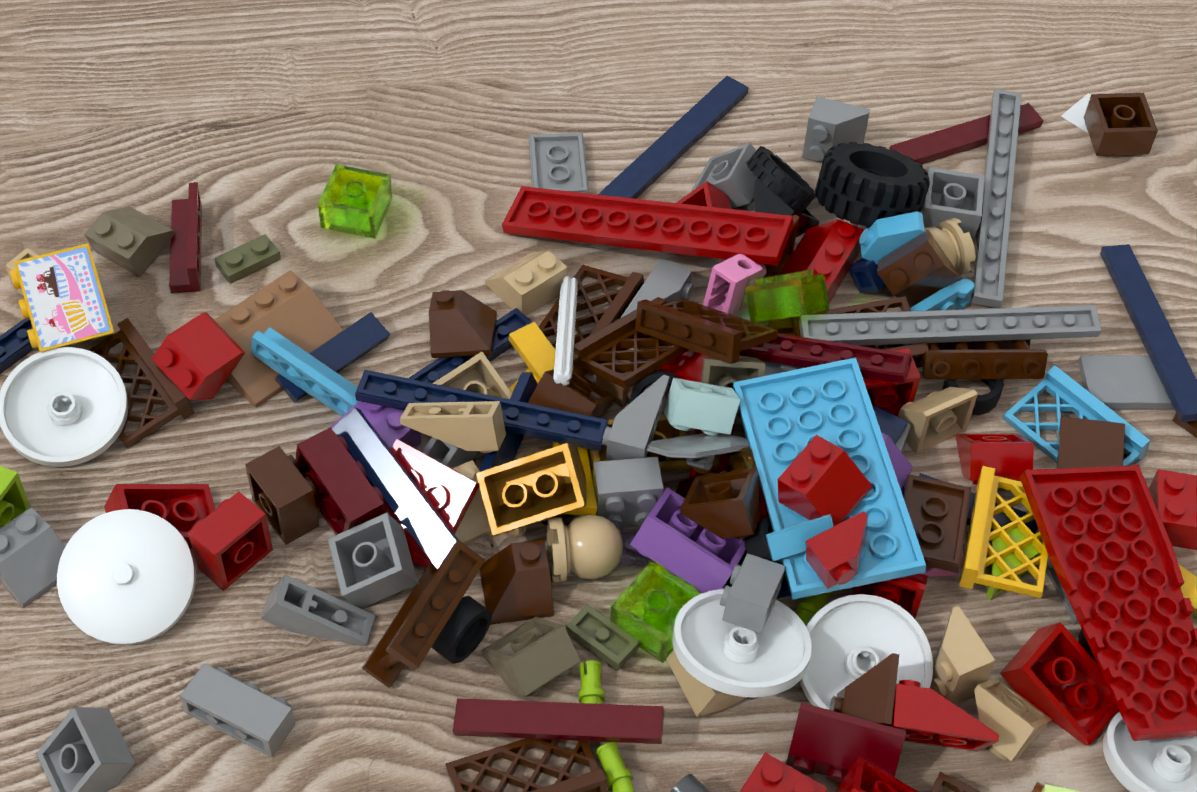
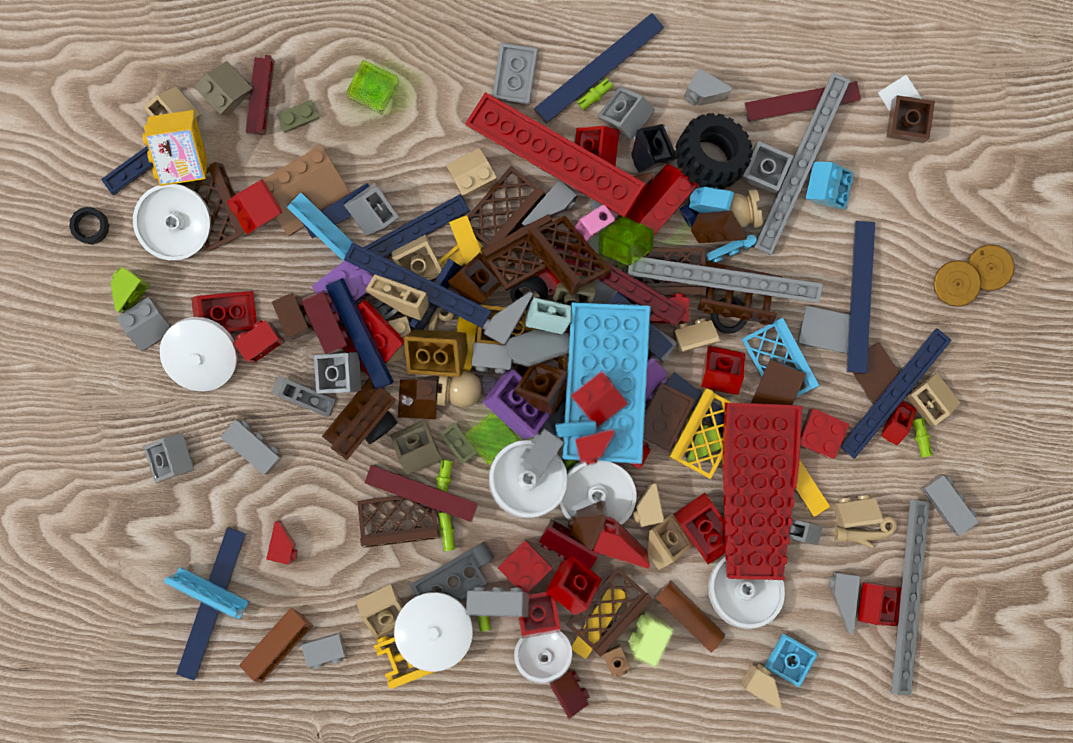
camera: 20 degrees right, 35 degrees up
(385, 337) = (371, 210): none -> light grey slope
(460, 325) = (421, 207): reddish brown slope -> none
(565, 331) = (482, 232): white axle -> none
(678, 168) = (595, 94): none -> lime pin
(781, 179) = (644, 137): black tyre -> none
(1046, 211) = (829, 185): none -> medium azure slope

